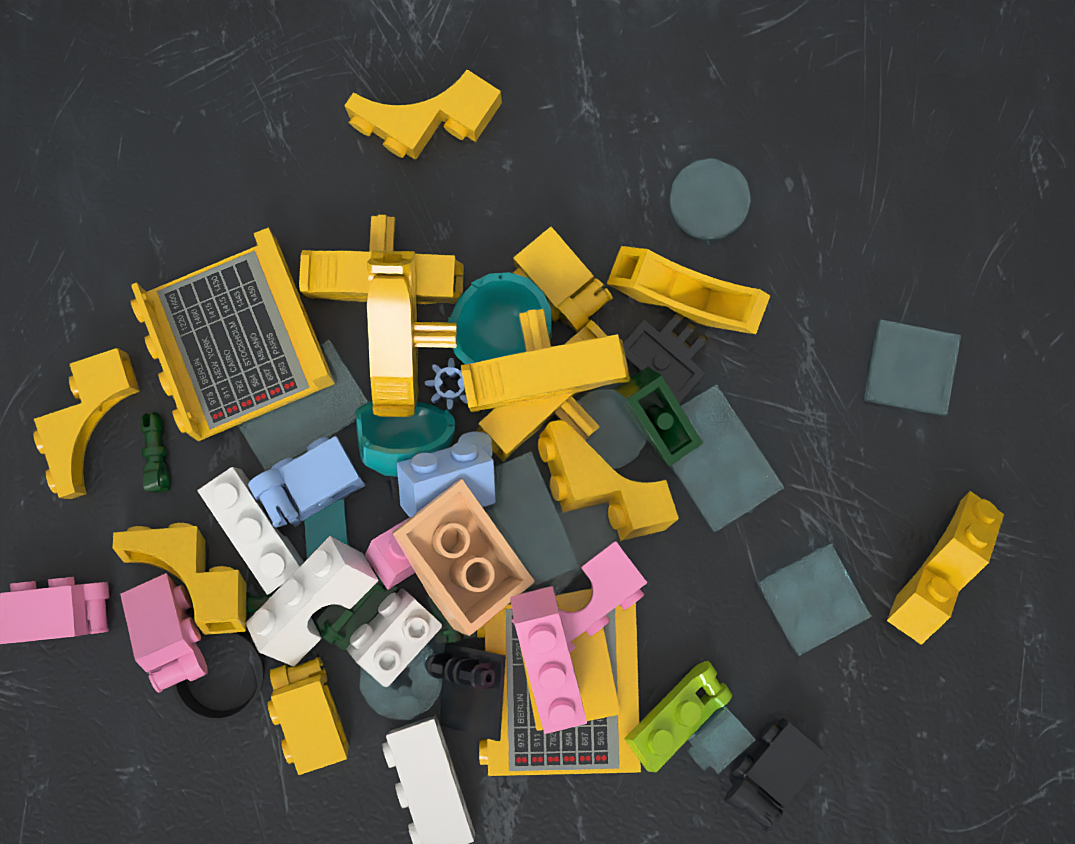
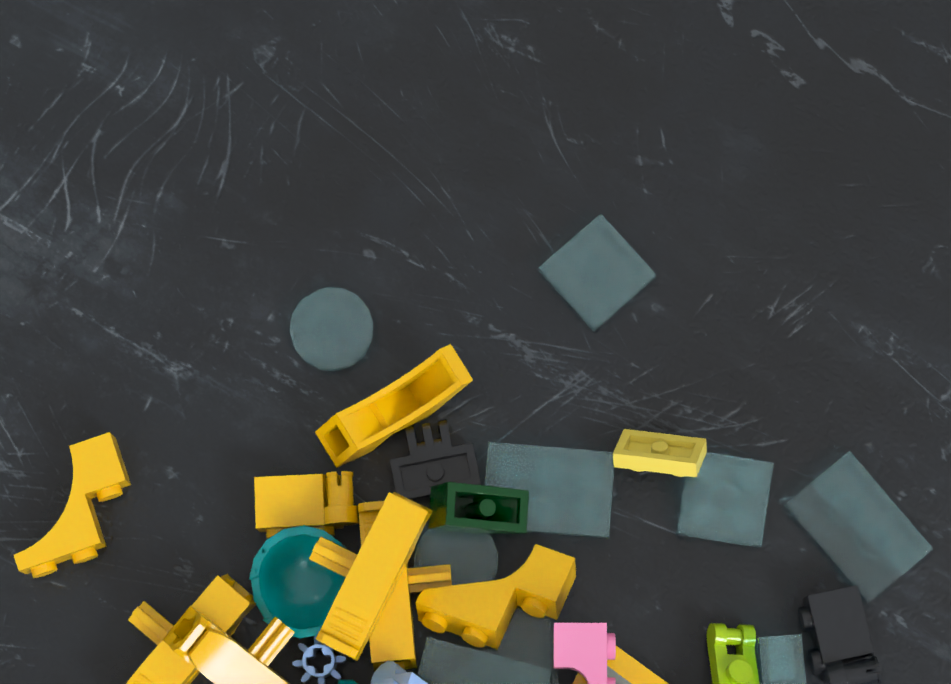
camera: 50 degrees left, 5 degrees down
(810, 523) = (660, 453): none -> light yellow plate
(872, 720) = (858, 527): none -> clear light blue tile
(956, 559) = (780, 368): yellow arch -> none

